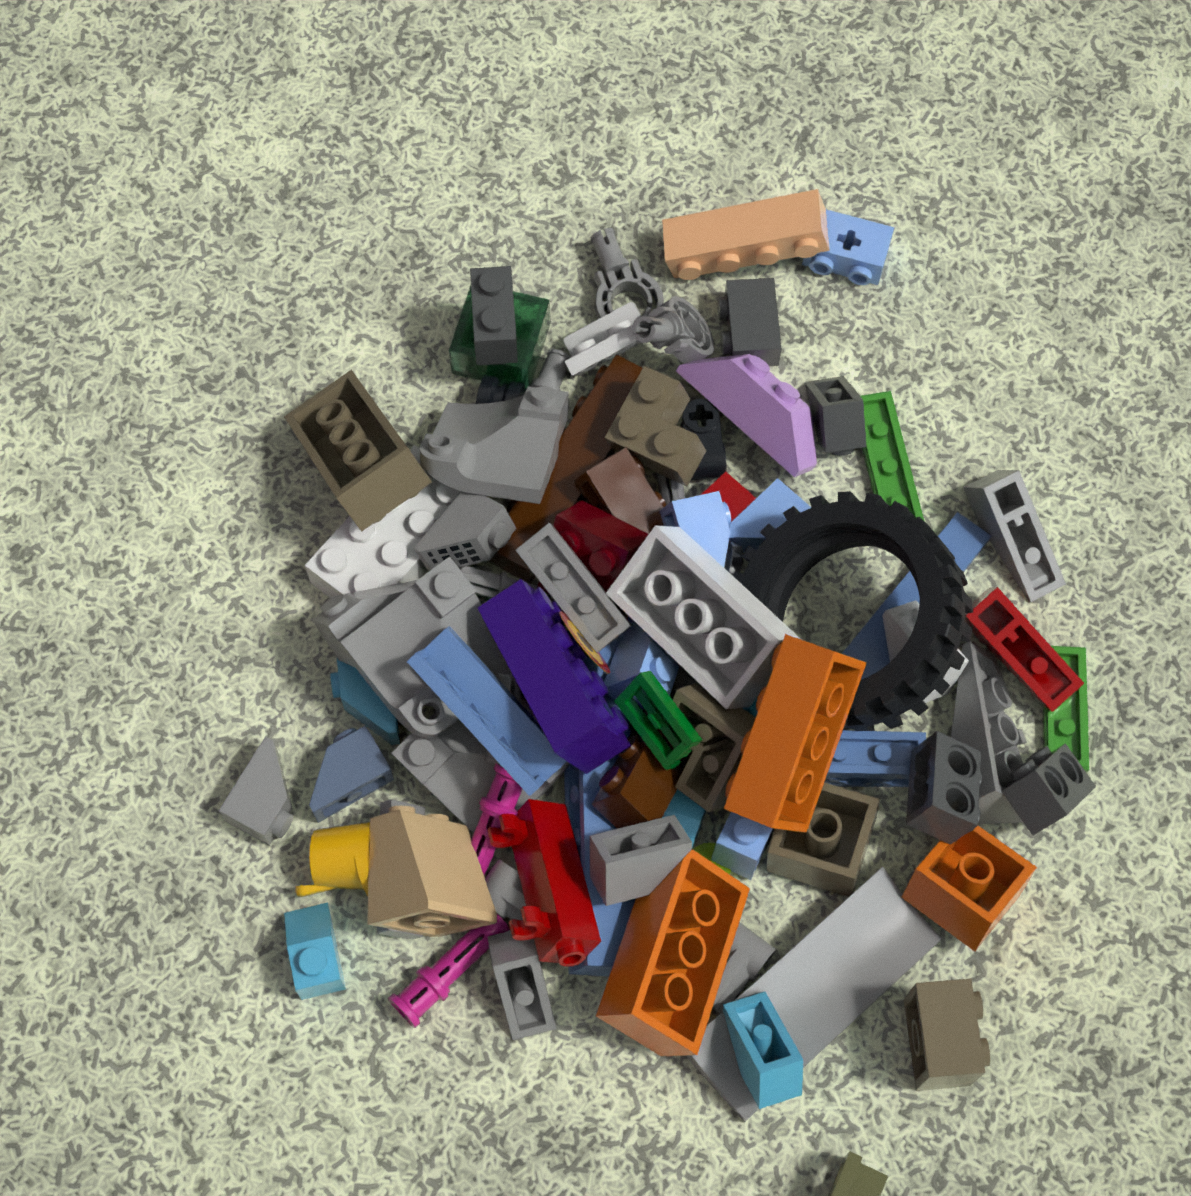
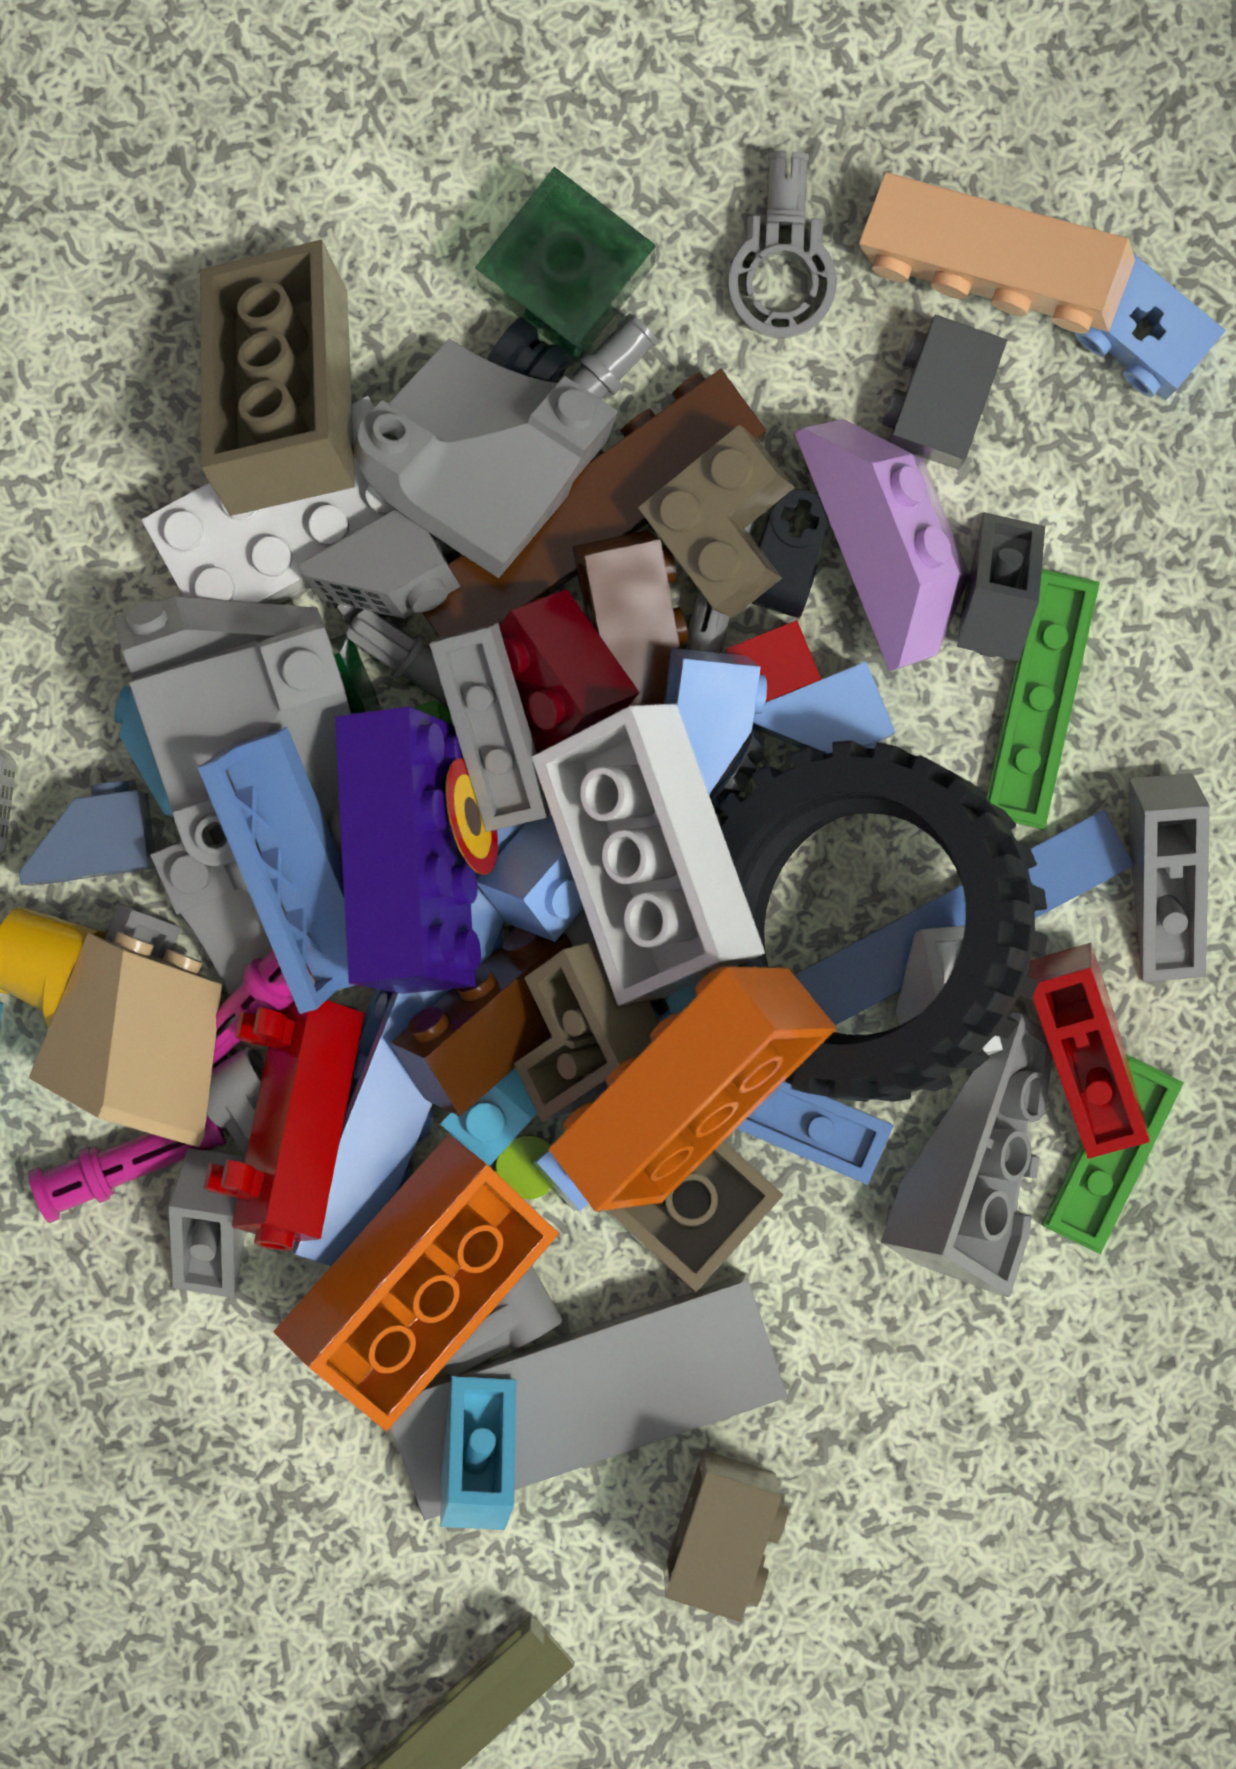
camera: 20 degrees right, 20 degrees up
(493, 315) = (555, 247): dark grey brick -> none
(602, 339) = (717, 336): white bracket -> none
(636, 858) = (415, 1149): light grey slope -> none
(662, 715) = (522, 974): green tile -> none
(679, 328) = (817, 368): light grey pin -> none
(944, 788) = (864, 1220): dark grey brick -> none
(969, 885) = (854, 1350): orange brick -> none
(1047, 787) = (1022, 1271): dark grey brick -> none

